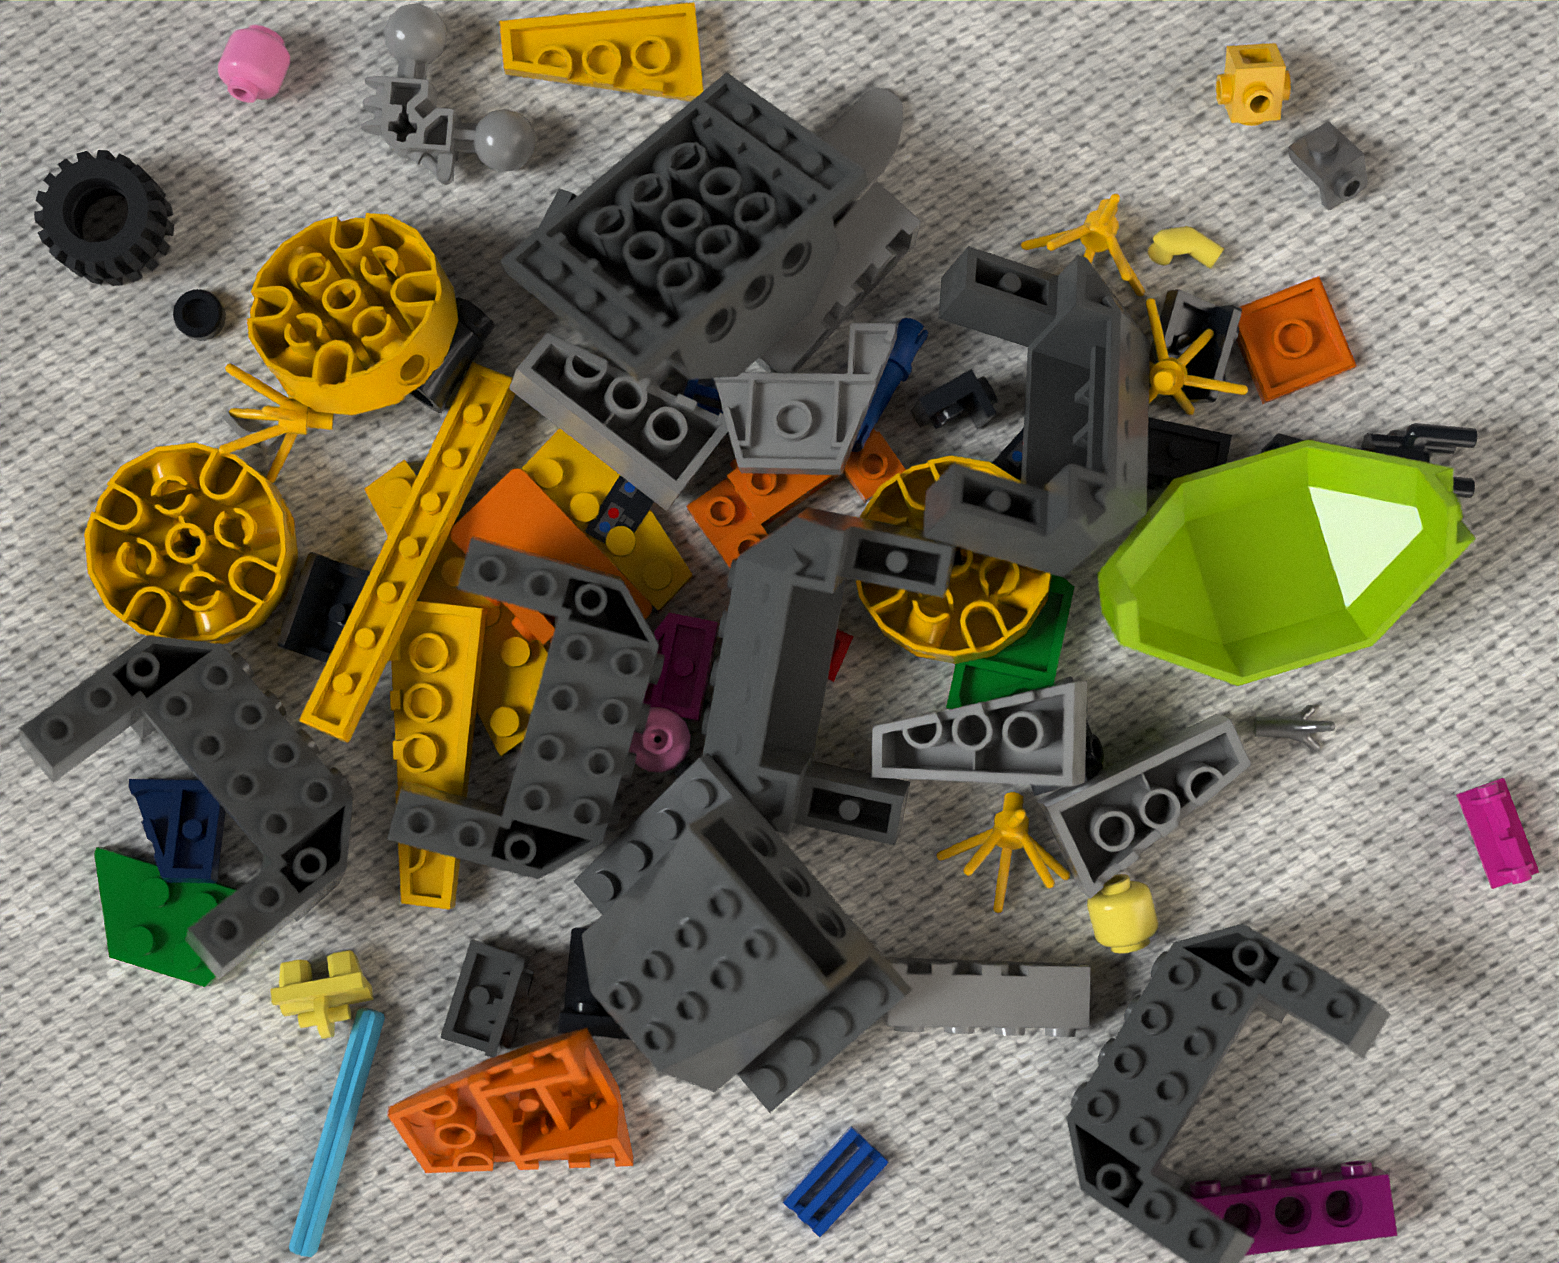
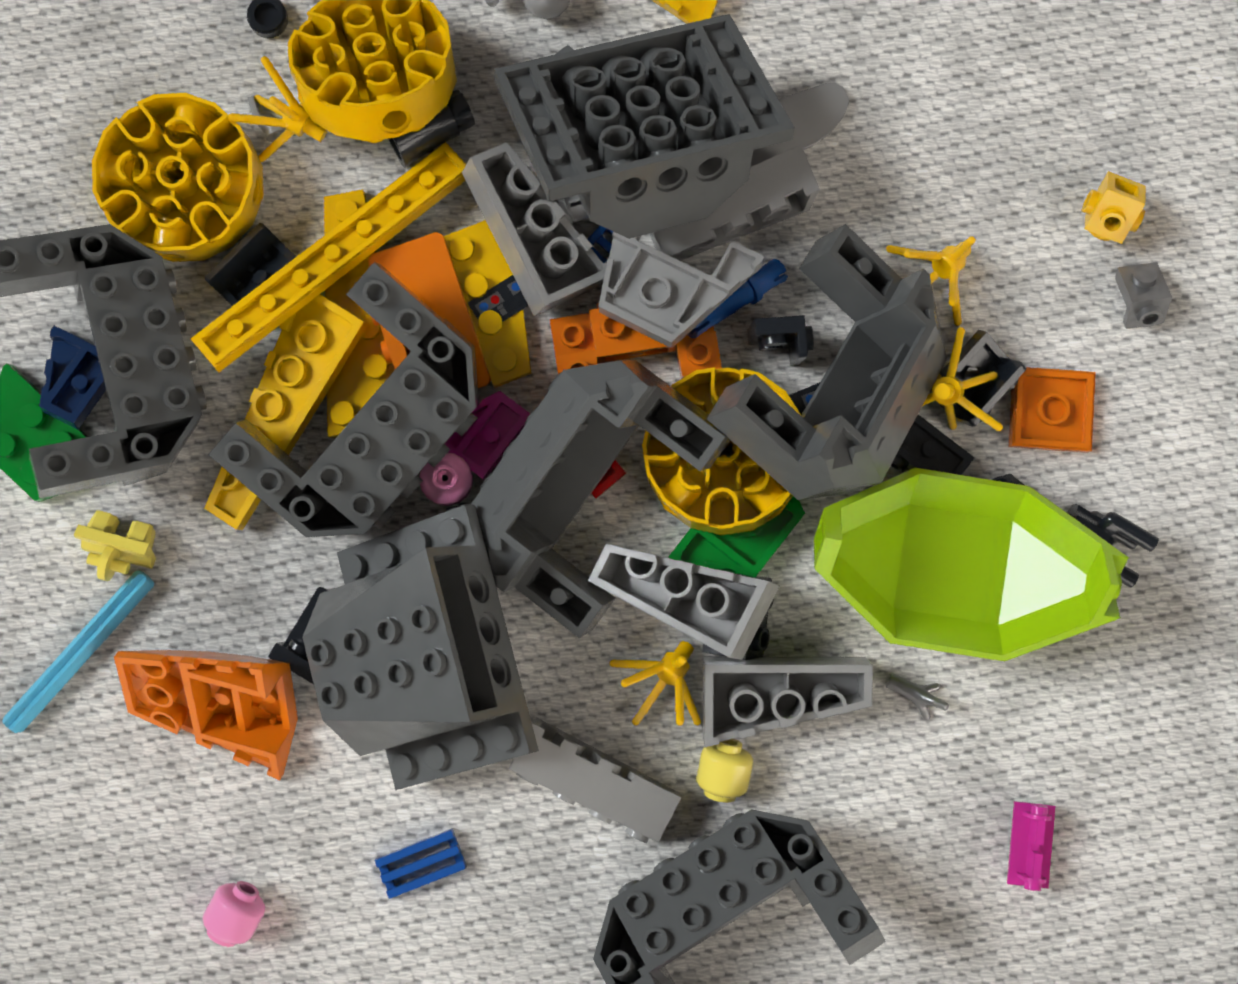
camera: 25 degrees right, 0 degrees up
(487, 997) = (232, 607): dark grey bracket -> none
(1183, 241) = (1006, 299): light yellow arm -> none

